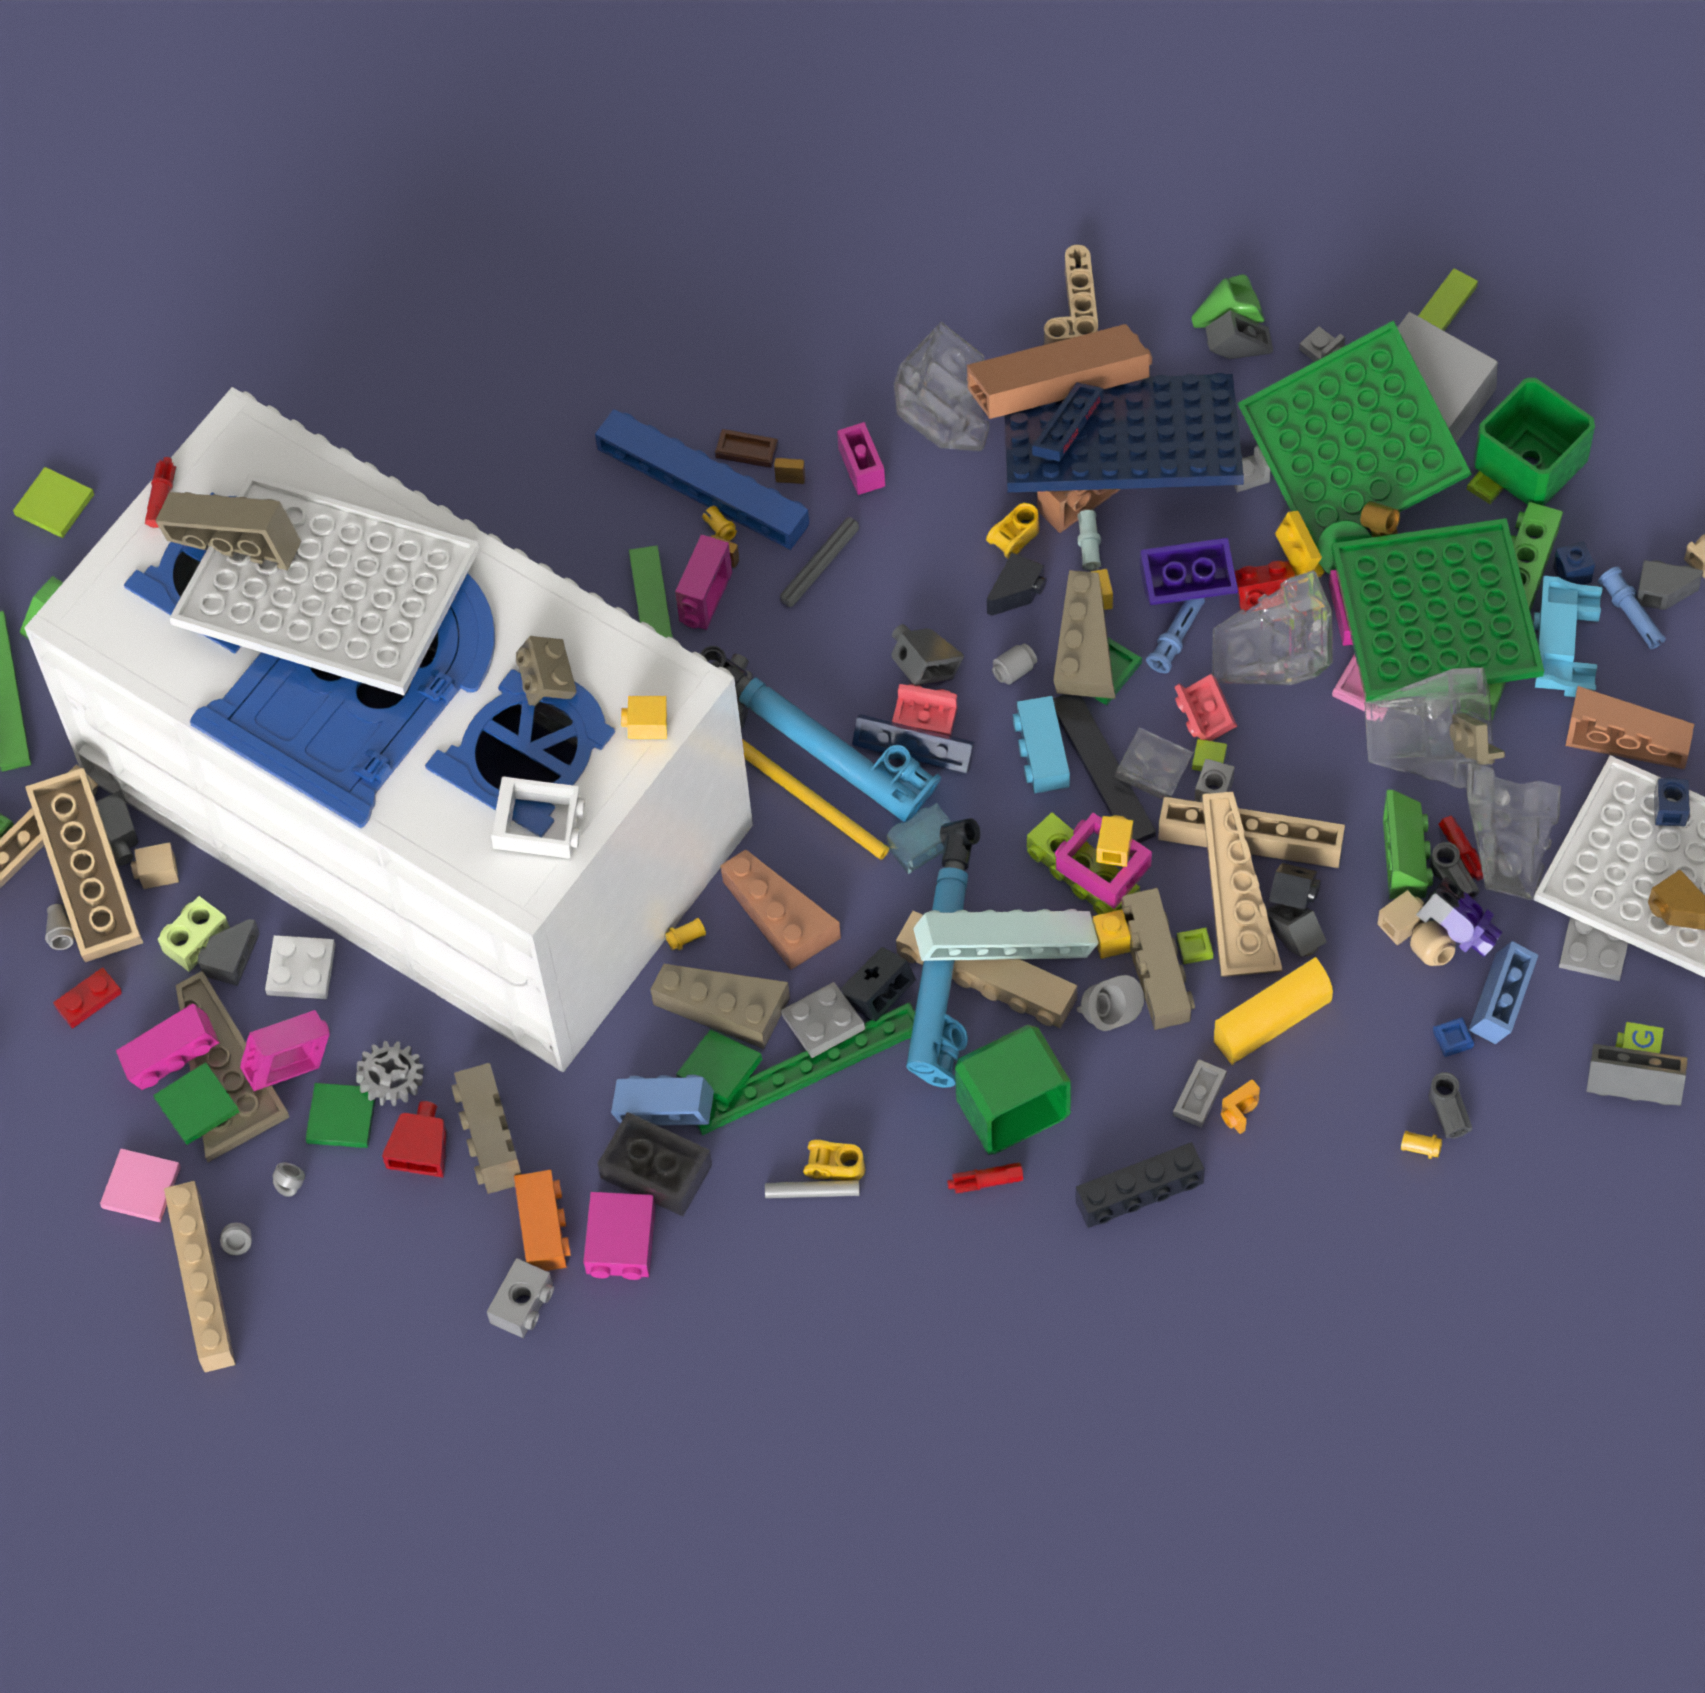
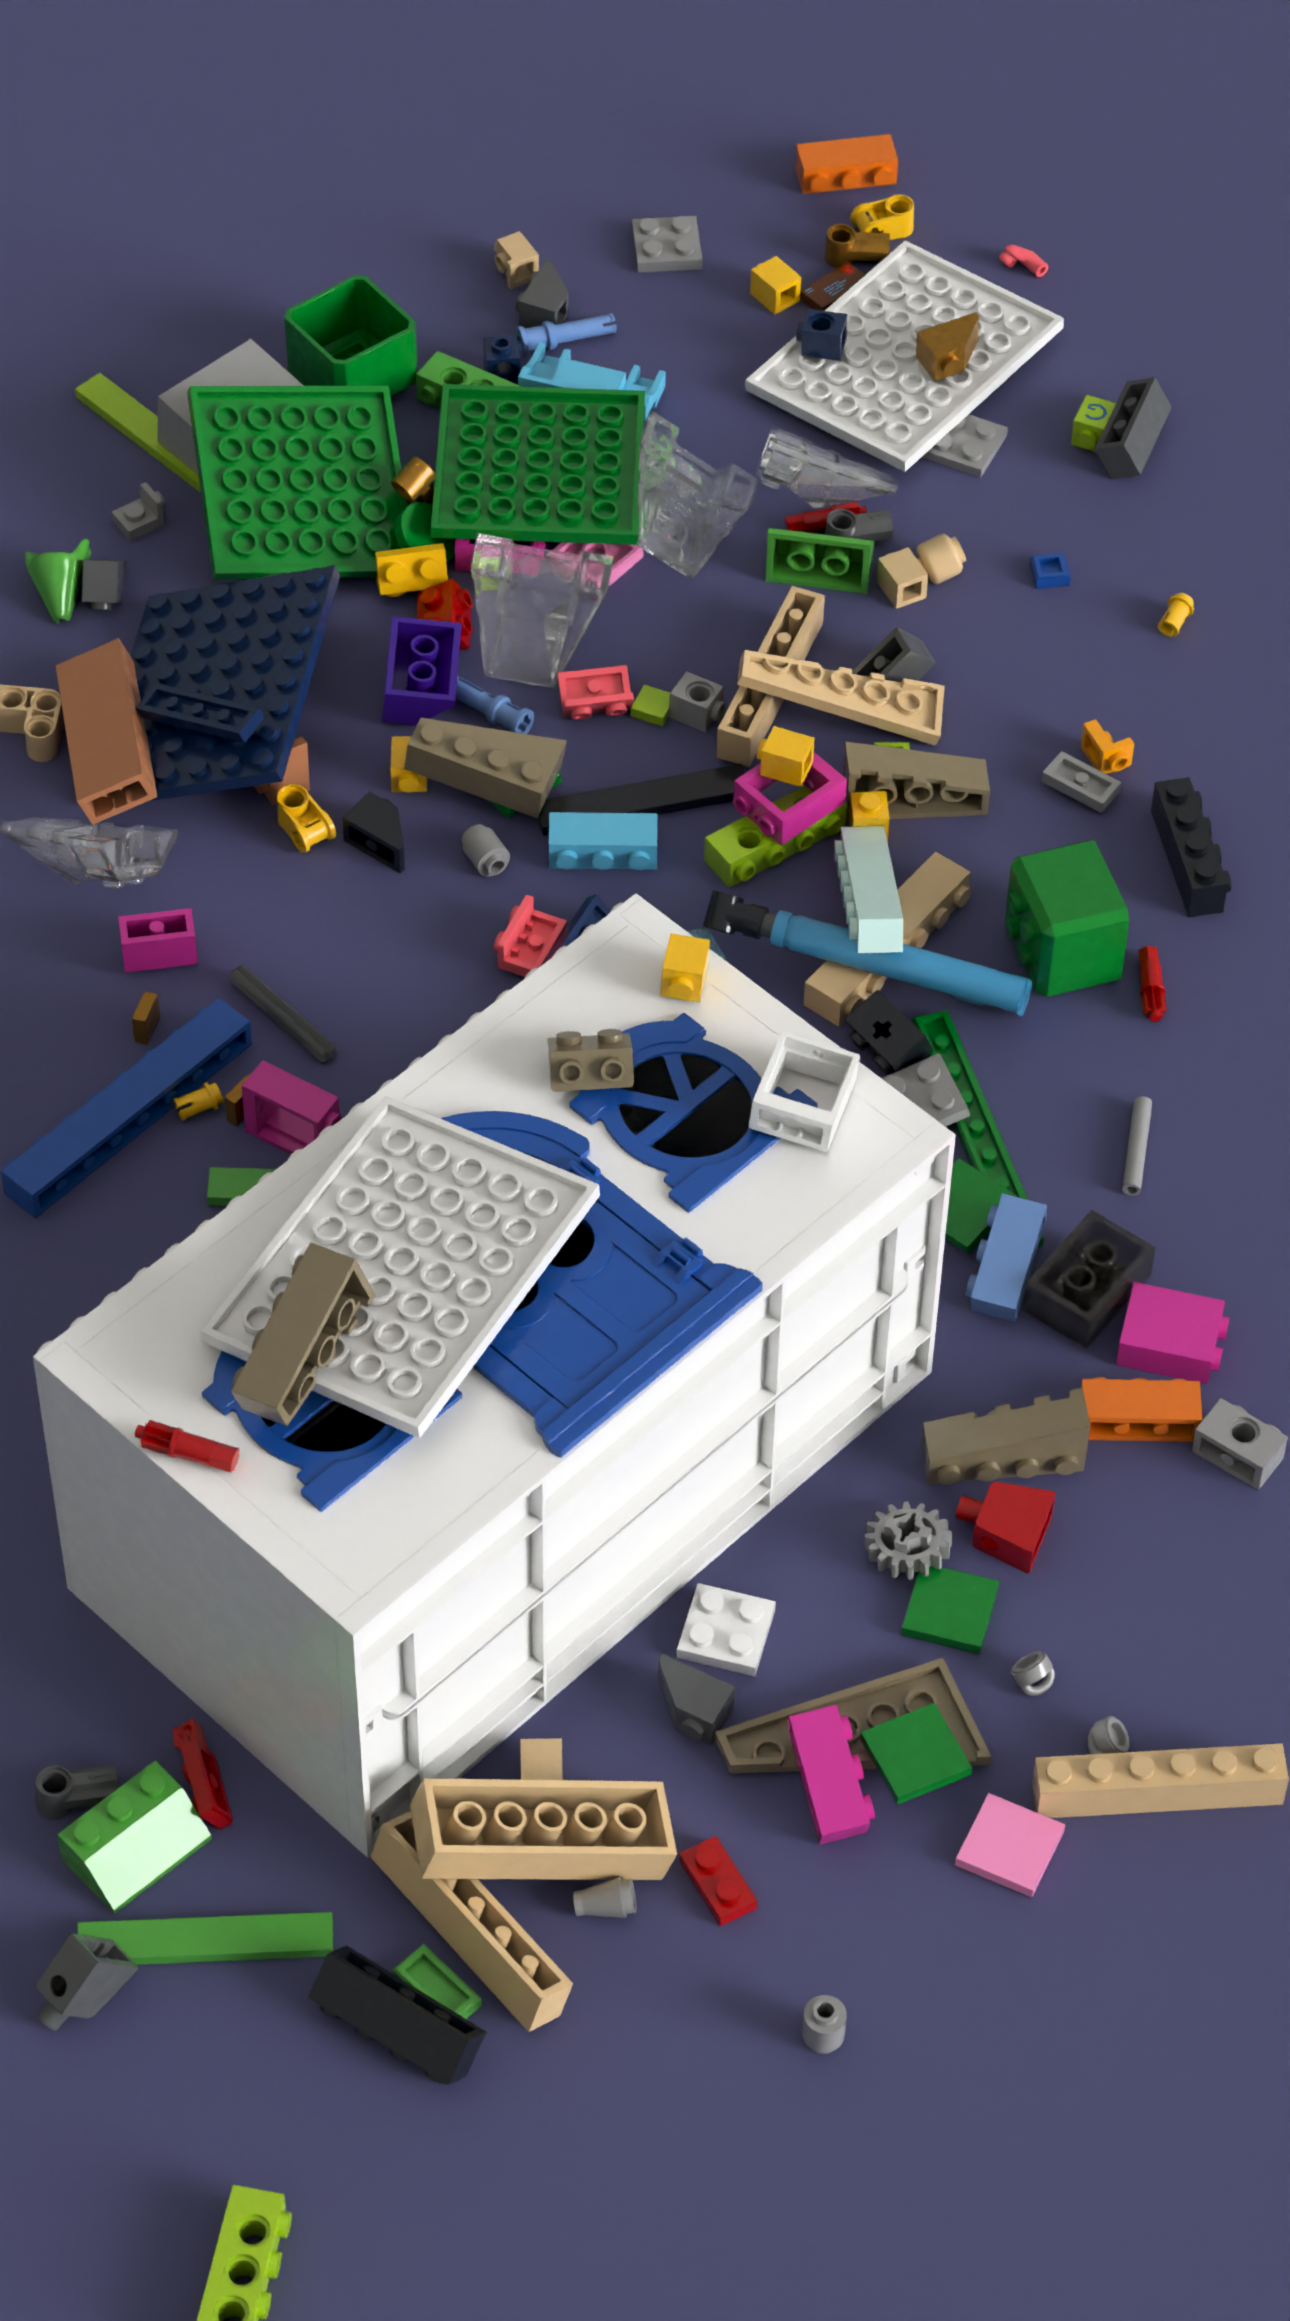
camera: 85 degrees left, 10 degrees down
(196, 934) = (663, 1734): yellowish green brick -> none
(284, 1050) = (867, 1632): dark pink window -> none
(746, 448) = (91, 1062): reddish brown tile -> none
(827, 1161) = (1109, 1112): yellow piece -> none
(925, 655) = (457, 922): dark grey torso -> none
(1089, 540) = (339, 758): light aqua pin -> none
(1112, 1002) = (956, 839): light grey piece -> none
(1153, 764) = (658, 747): clear plate -> none
(1273, 1011) = (996, 700): yellow brick -> none
(1294, 886) = (855, 643): black brick -> none
(1449, 1107) = (1126, 581): dark grey piece -> none
(1461, 917) = (922, 521): hips -> none
(1471, 739) = (718, 457): dark tan bracket -> none
(1503, 992) = (1015, 510): medium blue brick -> none
(1628, 730) = (719, 361): nougat wedge -> none

